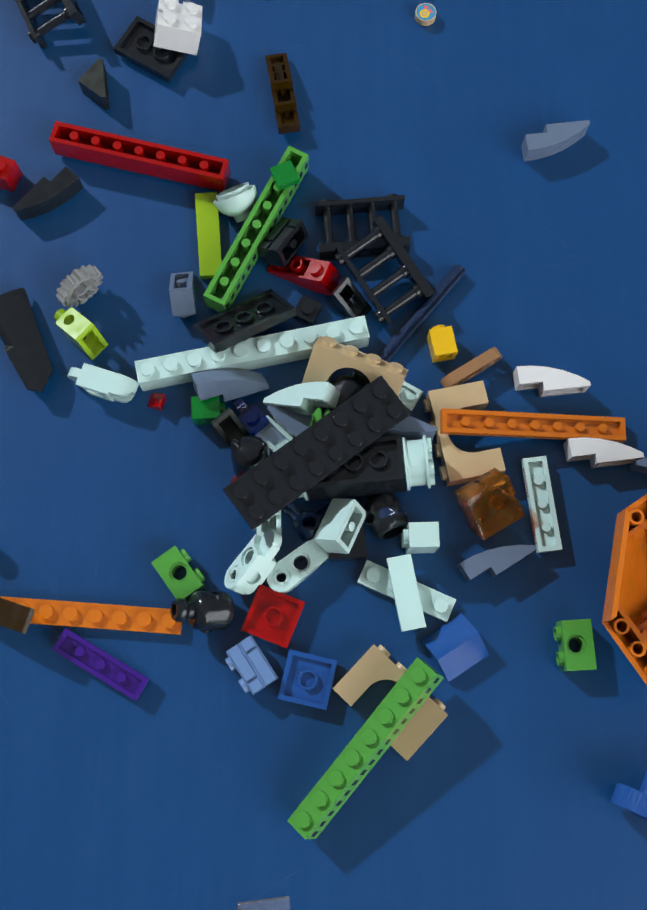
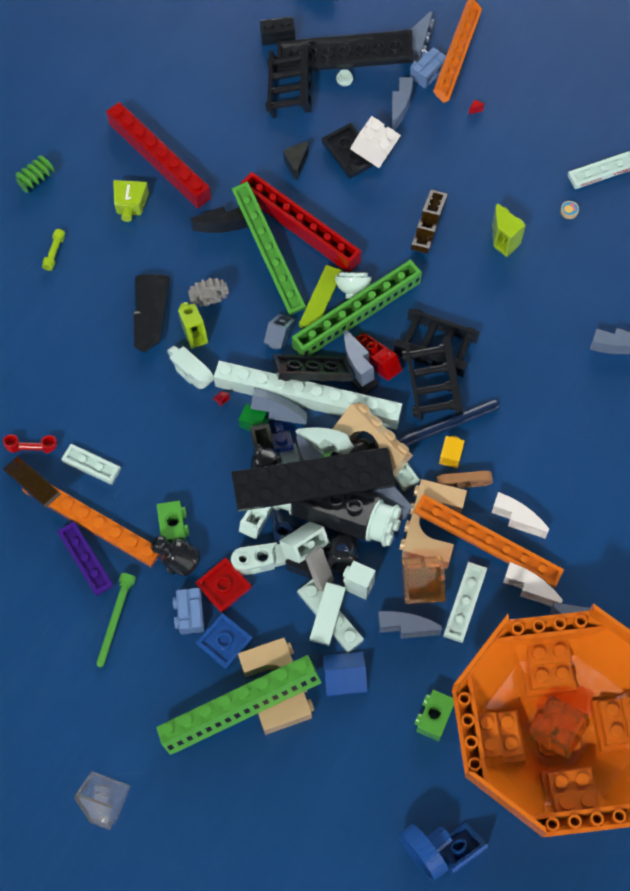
camera: 30 degrees right, 10 degrees down
(48, 549) = (91, 464): none -> light aqua tile
(120, 202) = (268, 248): none -> bright green plate
(162, 668) = (126, 581): none -> bright green piece
(253, 563) = (228, 539): light aqua piece -> none
(283, 242) = (371, 326): black brick -> none
(284, 175) = (395, 278): green tile -> none
(288, 286) = (358, 359): none -> sand blue slope
(349, 300) = (398, 388): black slope -> none
(371, 546) = (319, 568): none -> light grey tile
(373, 65) = (506, 230): none -> lime slope

